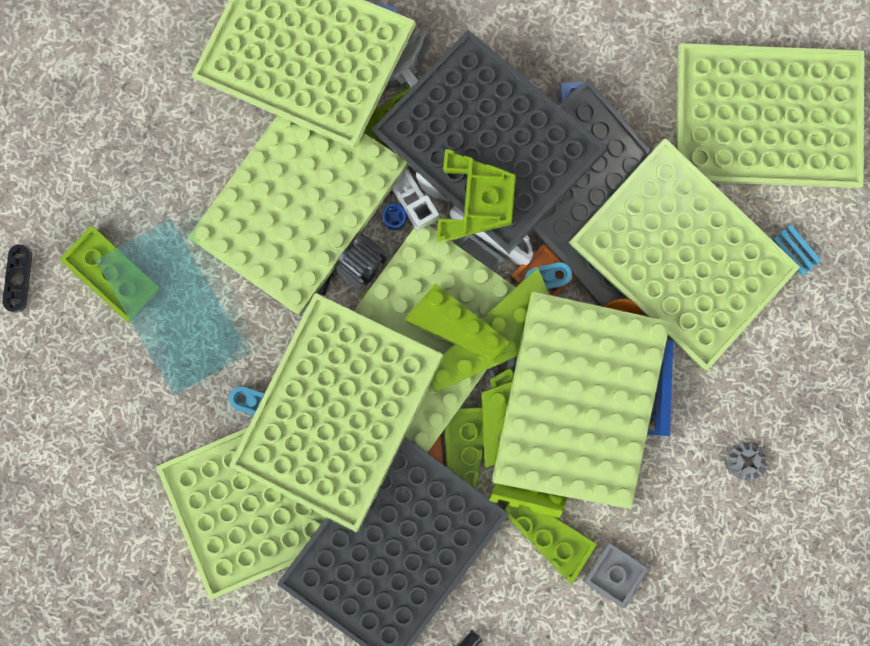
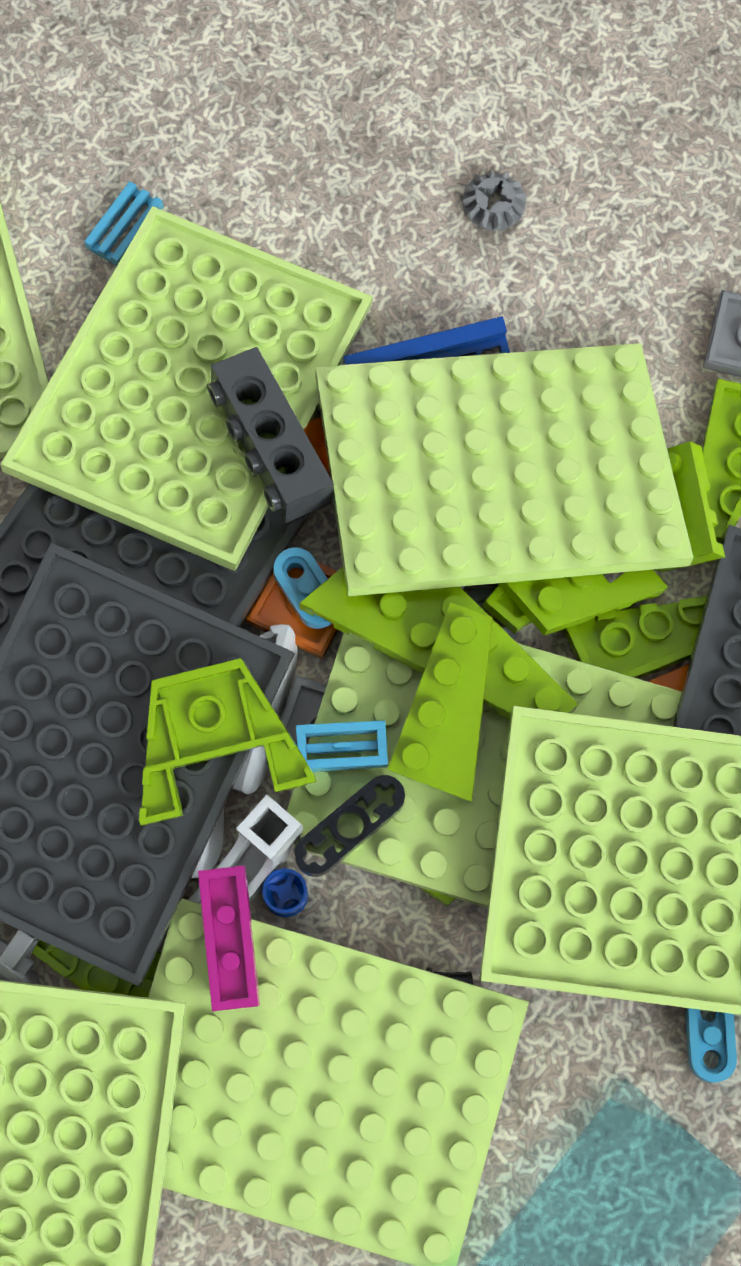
camera: 110 degrees left, 10 degrees down
(361, 262) = (390, 921): dark grey brick -> none
(377, 177) = (229, 938): none -> dark pink plate
(413, 237) = (382, 812): none -> black beam
(450, 285) = (347, 728): none -> medium azure tile
(674, 281) = (250, 378): none -> dark grey brick

